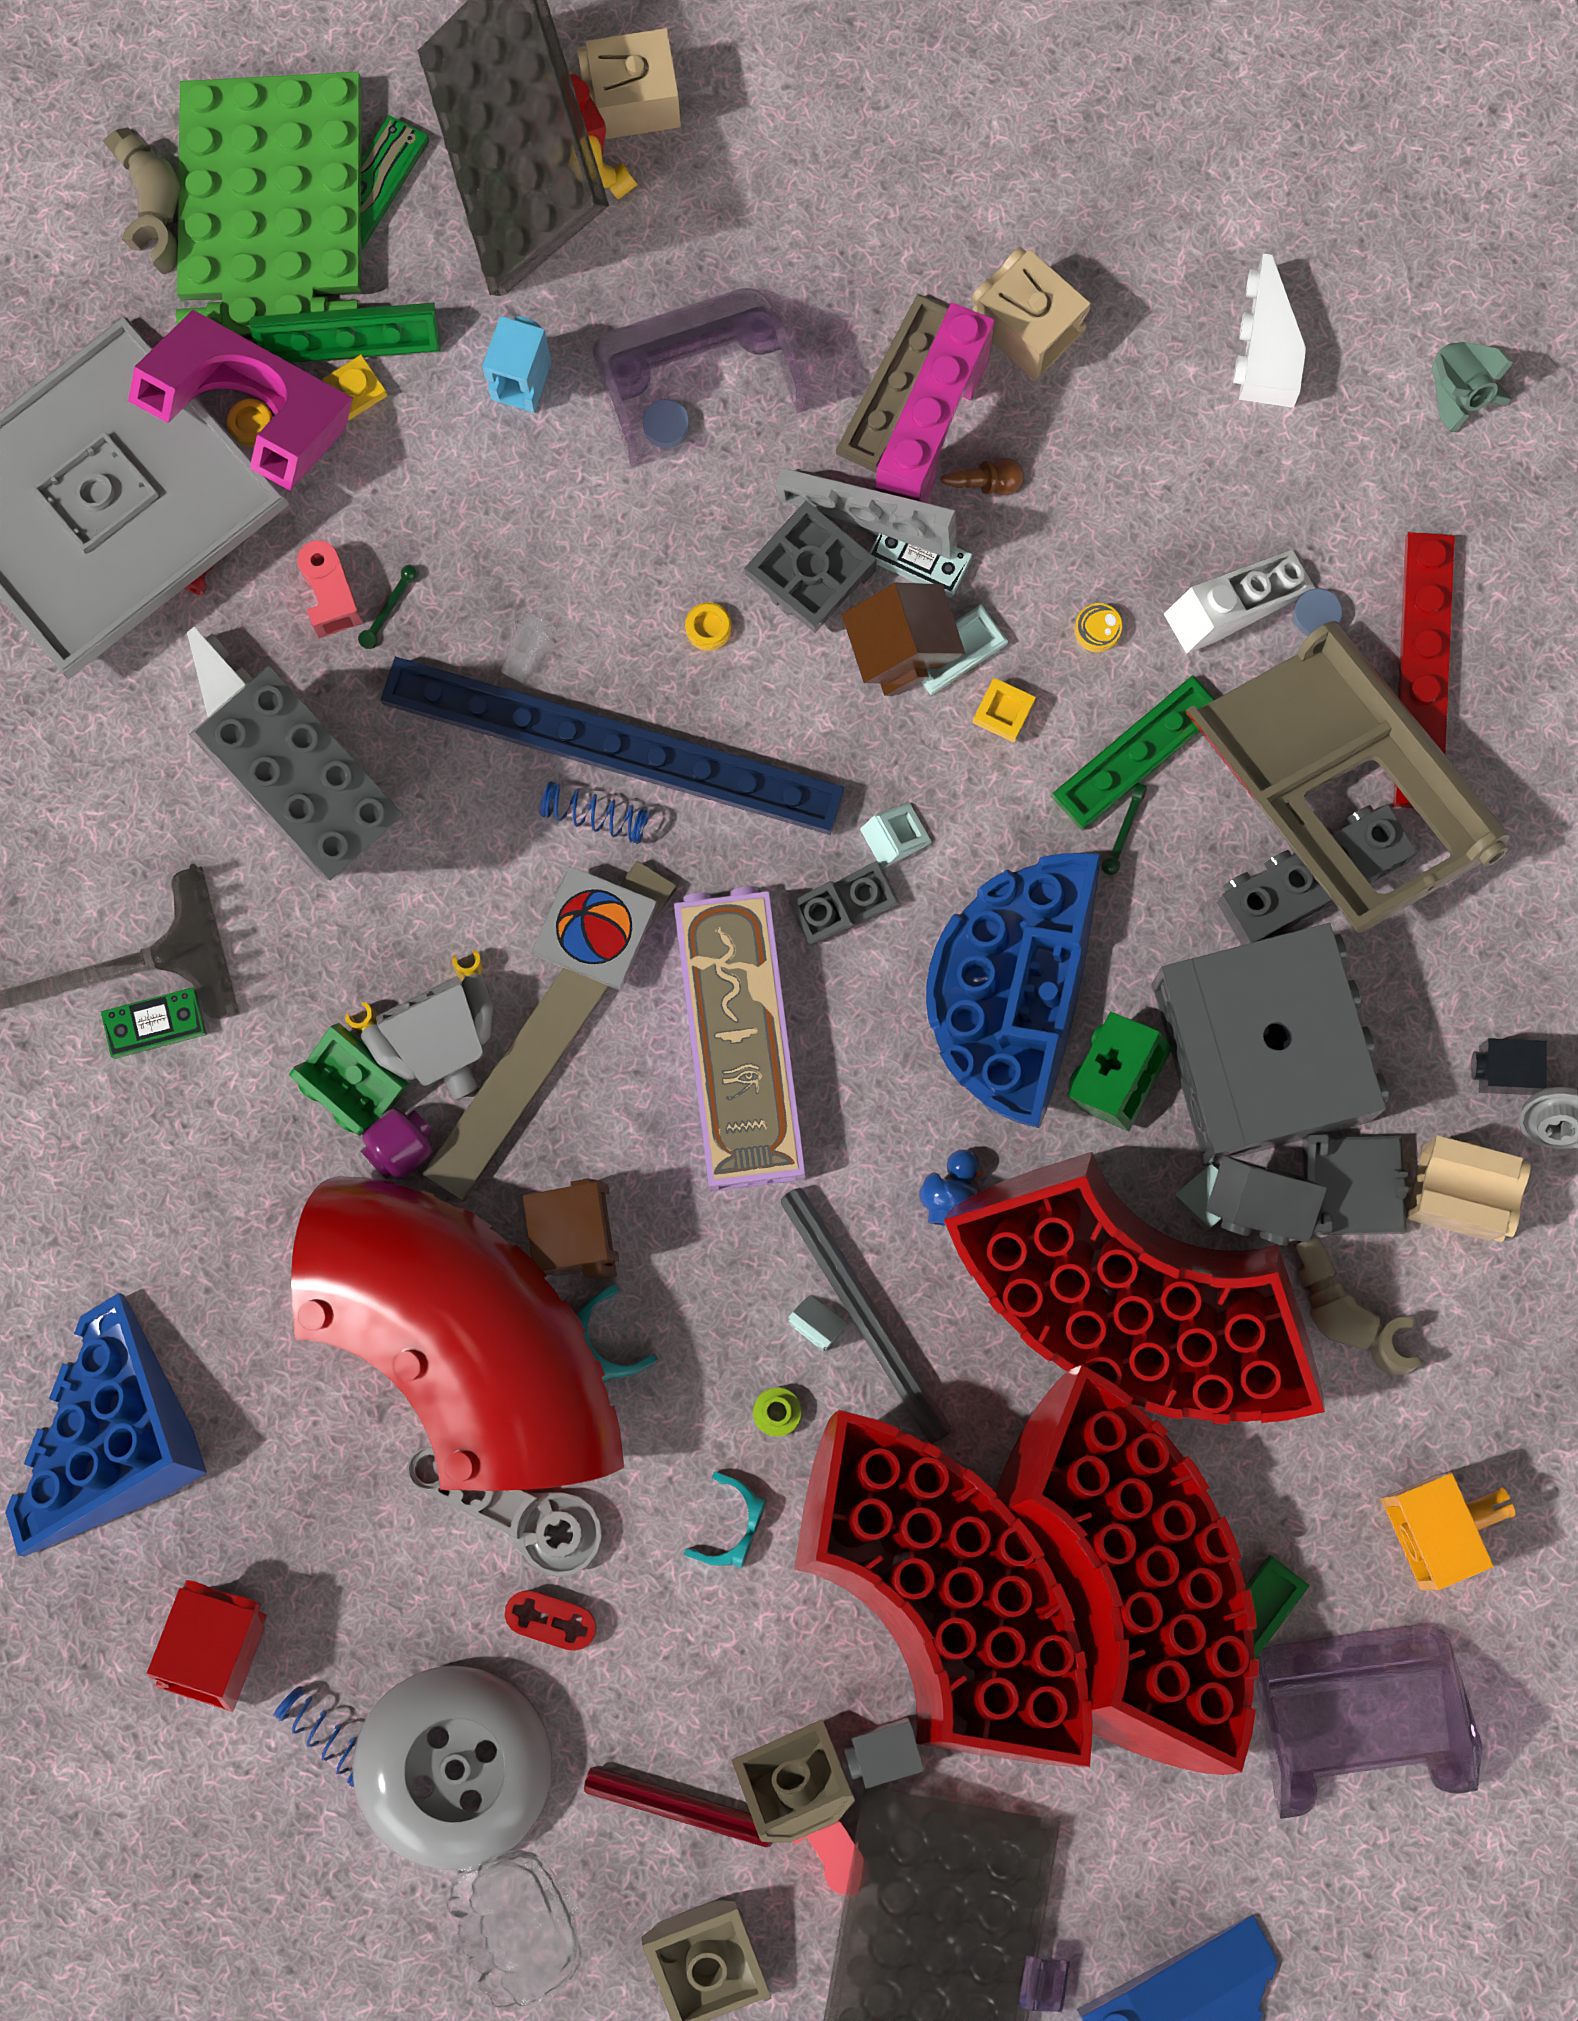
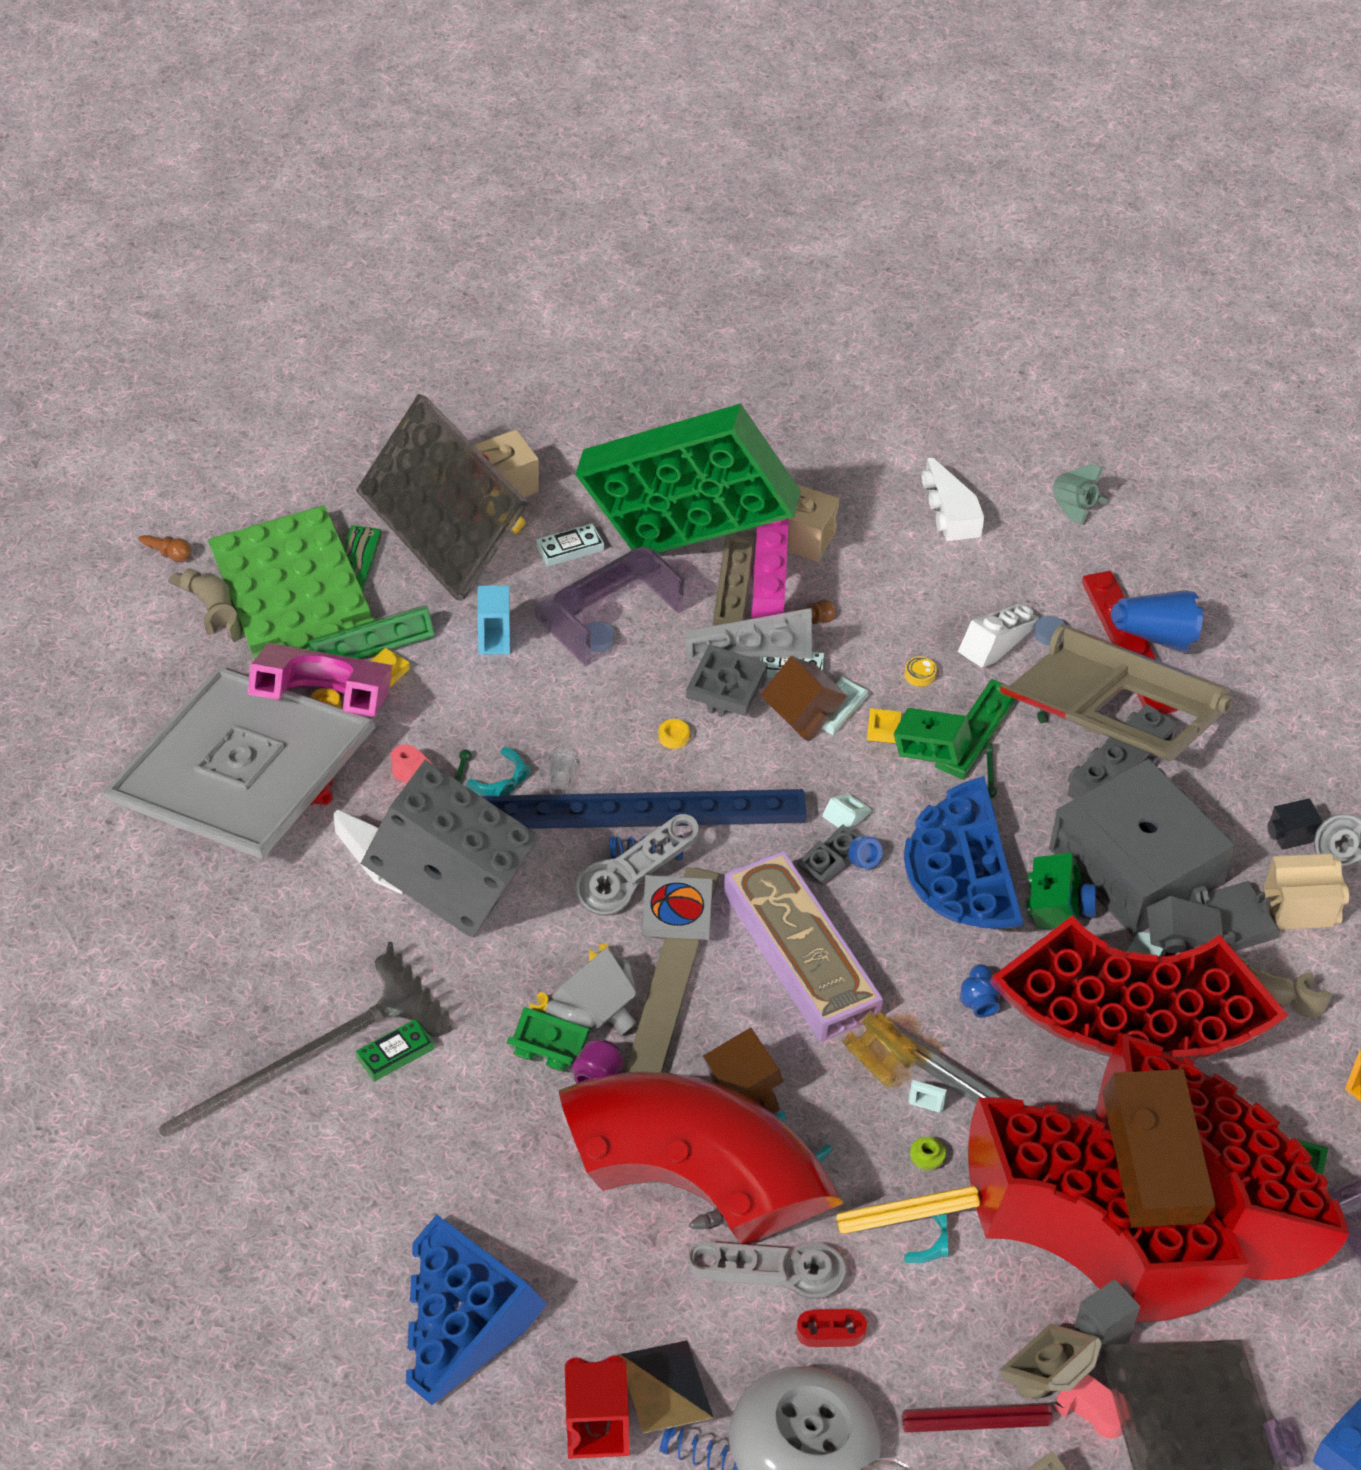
camera: 25 degrees left, 30 degrees down
(131, 87) = (176, 549): none -> dark orange bar
(312, 1633) = (666, 1387): none -> sticker
(438, 649) = (499, 788): none -> teal cap
(551, 848) = (631, 867): none -> light grey beam
(687, 243) = (569, 545): none -> light aqua tile
(712, 1494) = (908, 1209): none -> yellow axle
(773, 1244) = (900, 1048): none -> clear yellow brick
(853, 240) = (689, 481): none -> green brick
(888, 917) = (865, 852): none -> blue tile
(1030, 1586) = (1158, 1148): none -> reddish brown brick
(1060, 757) = (932, 736): none -> green brick
(1161, 1096) = (1088, 900): none -> blue tile
(1476, 662) = (1161, 618): none -> blue cone

